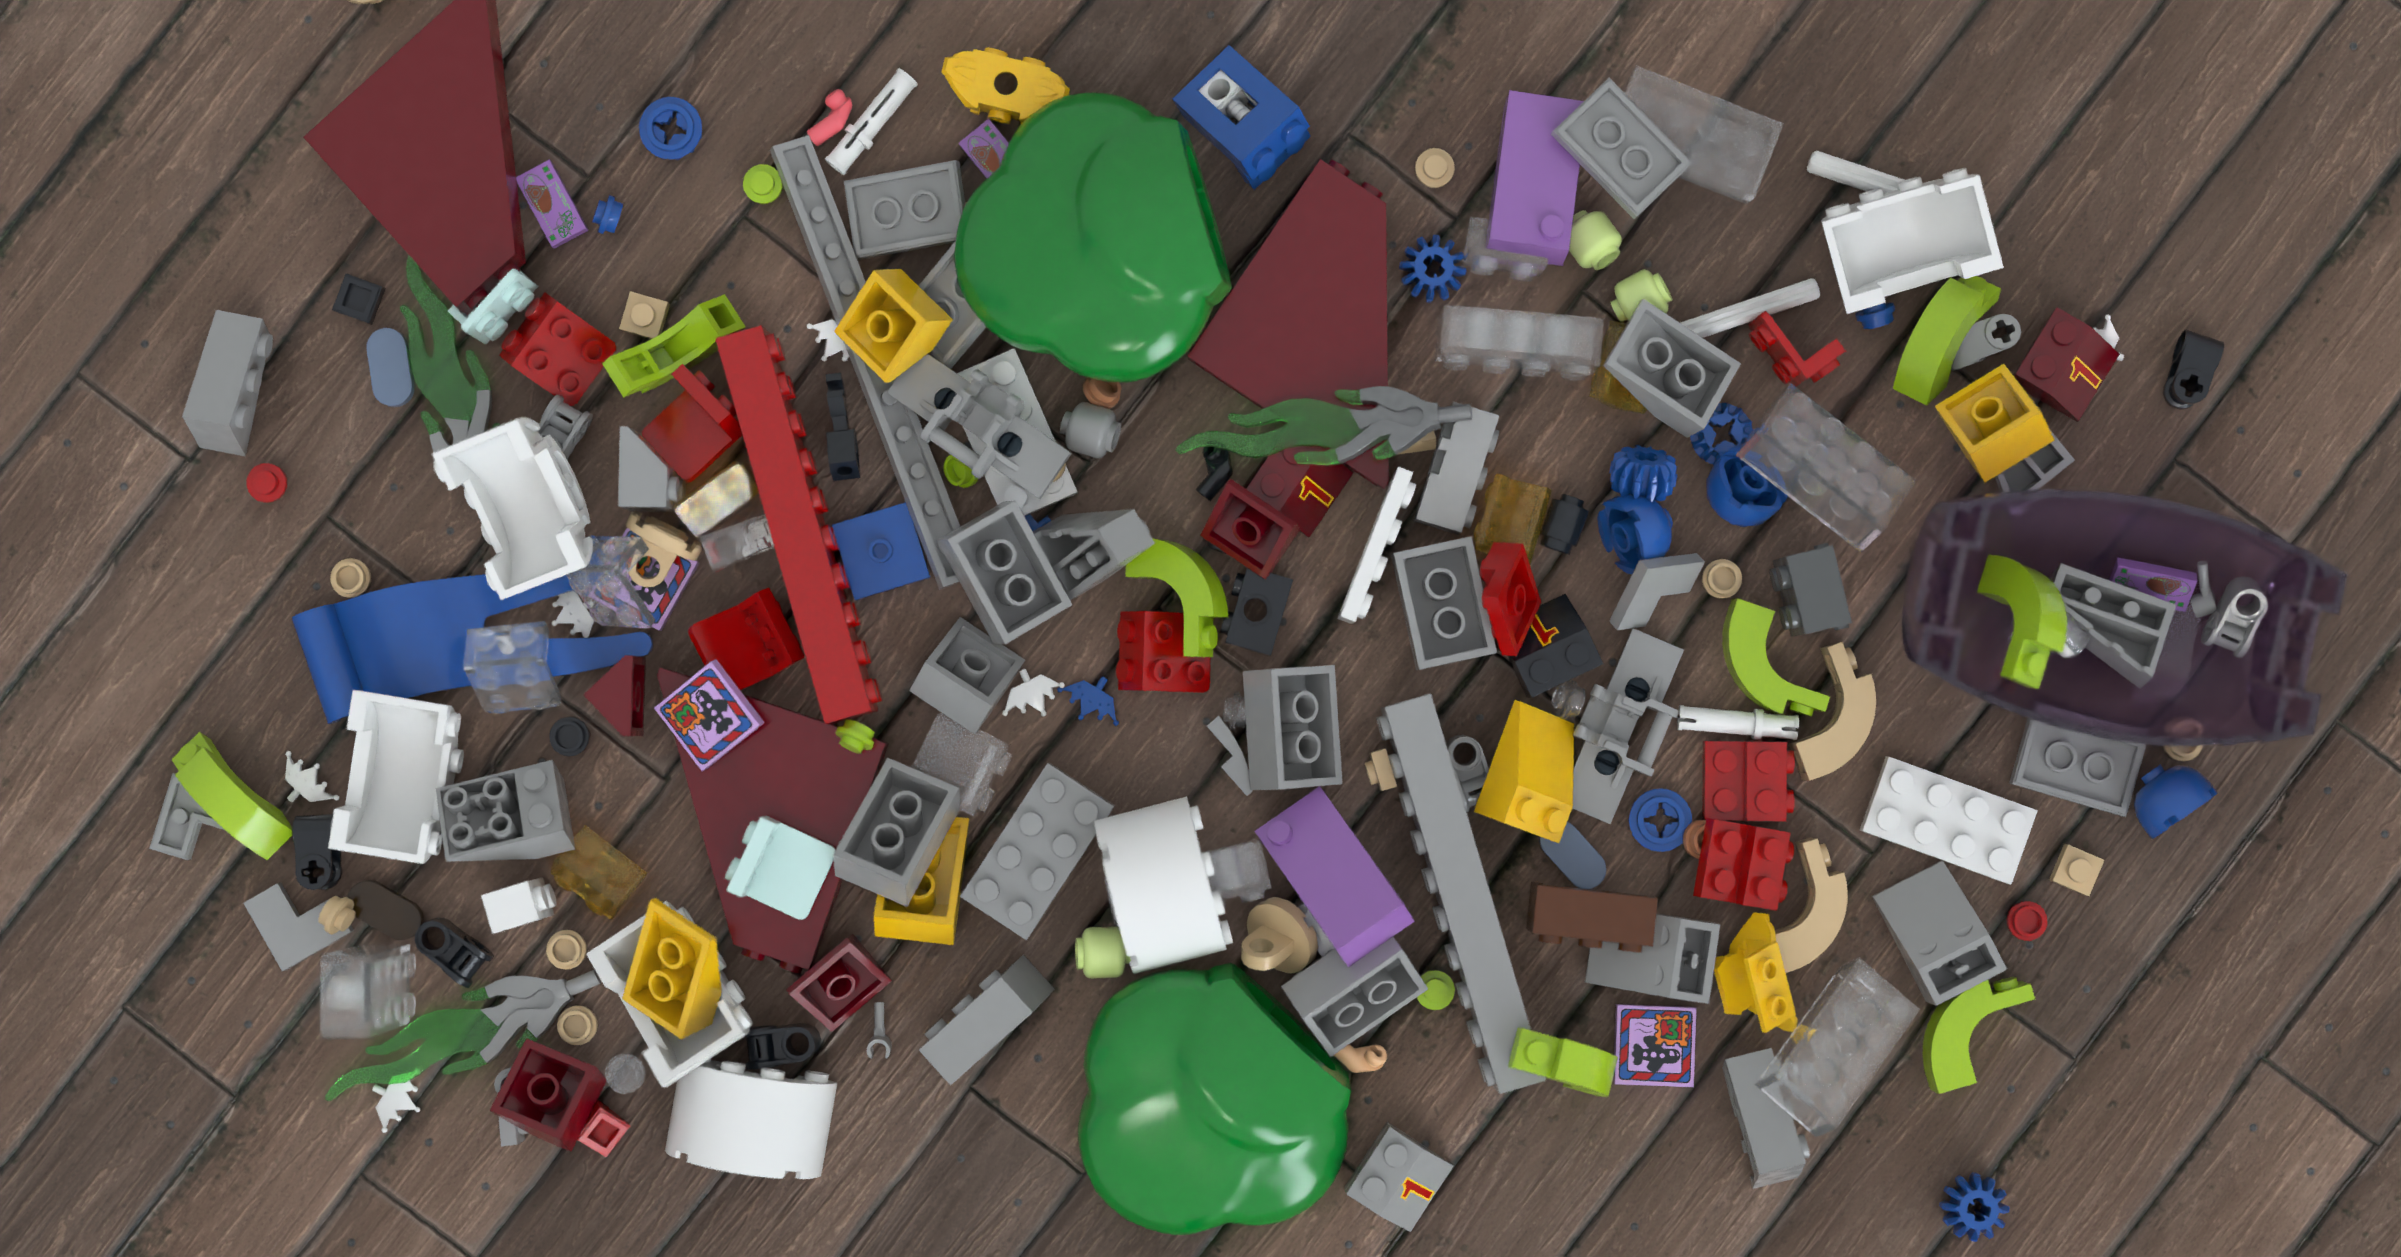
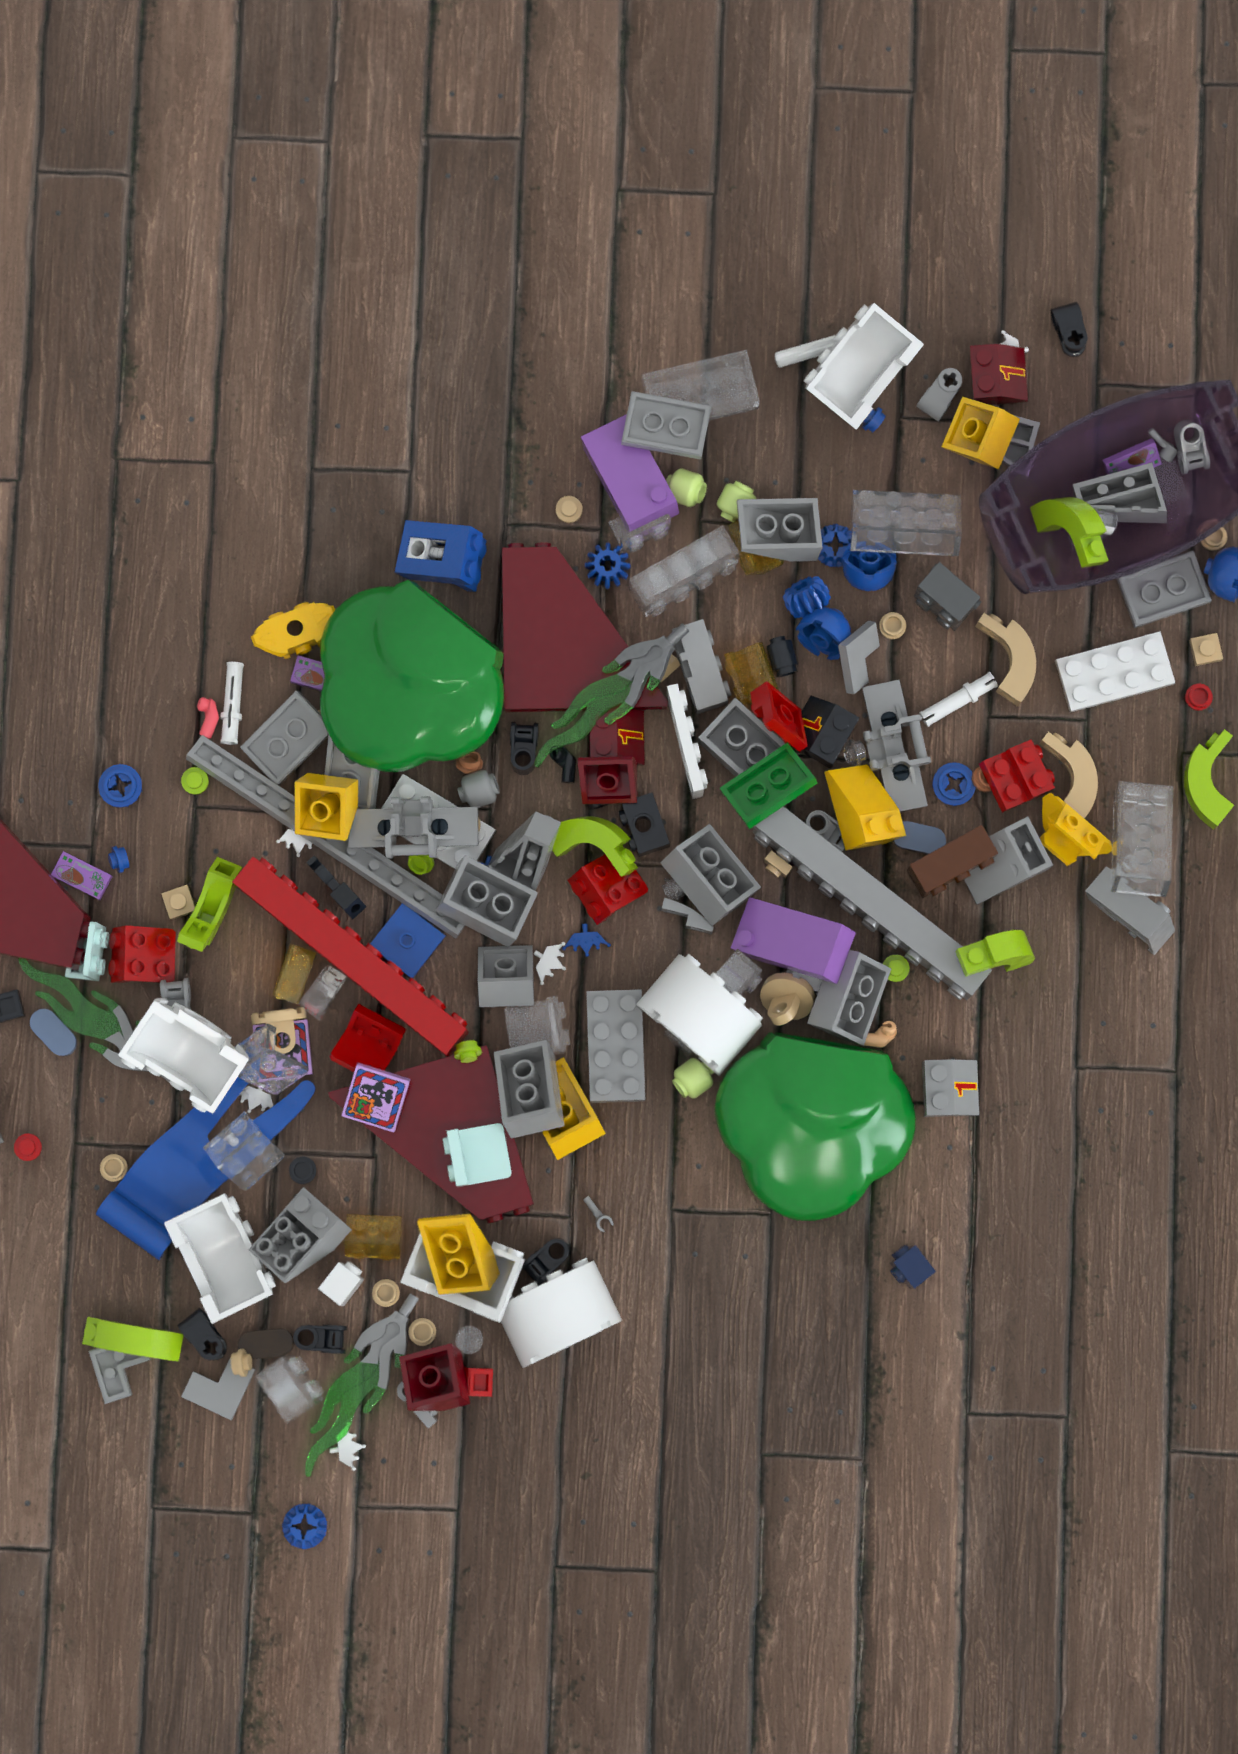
camera: 30 degrees left, 5 degrees down
(301, 1154) = (314, 1517): none -> blue gear
(305, 782) = (168, 1302): white piece -> none
(621, 695) = (316, 1123): dark red slope -> none
(645, 477) = (246, 989): light grey slope -> none
(693, 427) = (252, 942): red bracket -> none
(839, 983) = (556, 1201): dark red slope -> none
(985, 1019) = (652, 1163): light grey wedge -> none
(1181, 414) = (523, 742): none -> black piece
(1435, 672) = (768, 785): none -> green plate
(1655, 1045) = (1041, 912): tile -> none
(1746, 781) = (987, 728): red plate -> none
(1747, 661) = (944, 664): lime arch -> none
(1748, 310) = (803, 463): white axle -> none
(1788, 364) = (843, 480): red bracket -> none
(1938, 335) = (916, 406): lime arch -> none
(1938, 934) = (1154, 738): light grey slope -> none

